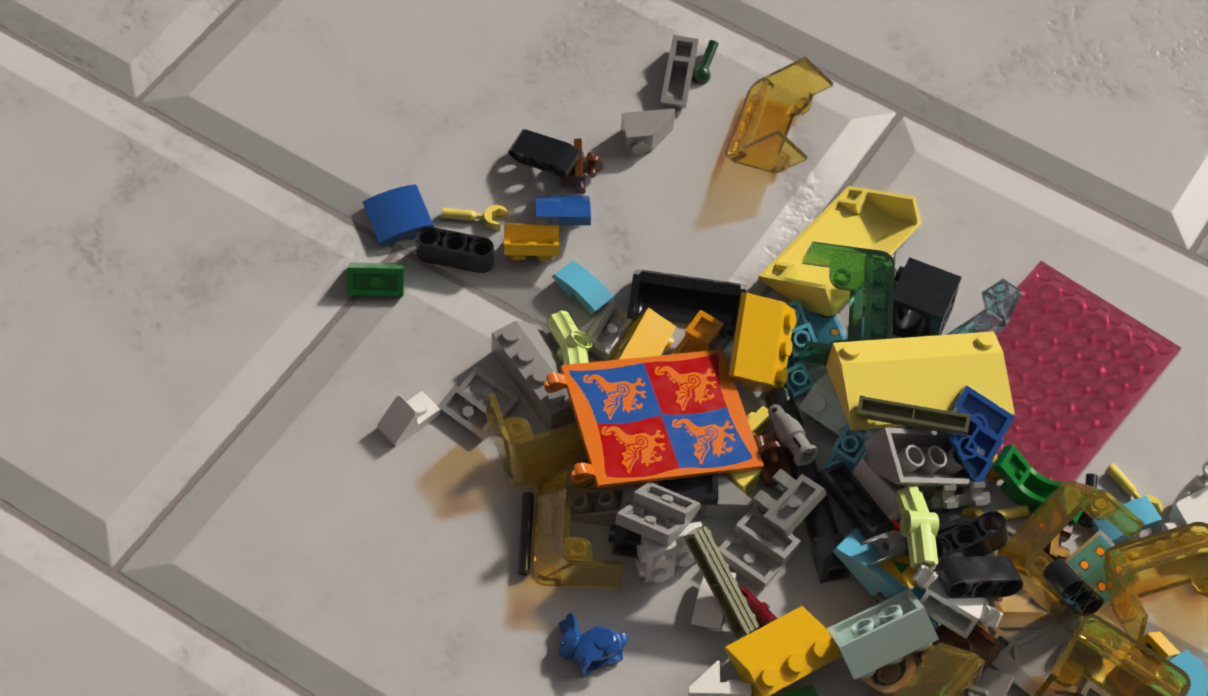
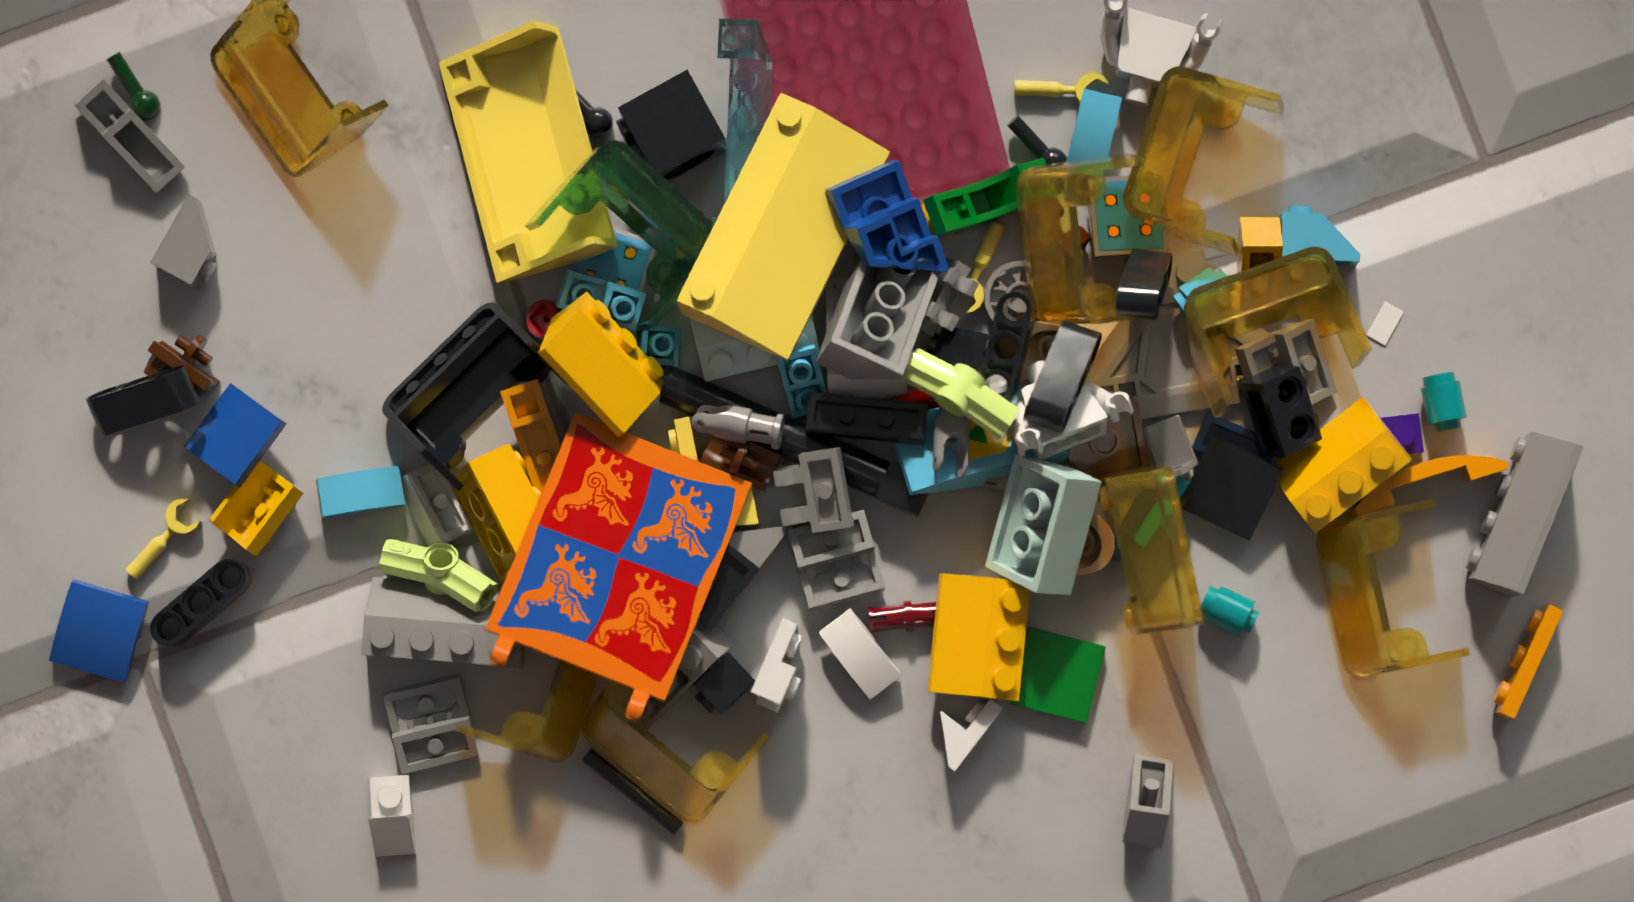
camera: 45 degrees left, 30 degrees up
(375, 279) = (172, 720): green panel -> none
(592, 648) = (822, 826): blue animal -> none
(658, 513) = (741, 658): light grey slope -> none
(721, 581) = (859, 643): olive piece -> none
(913, 416) = (833, 291): olive piece -> none

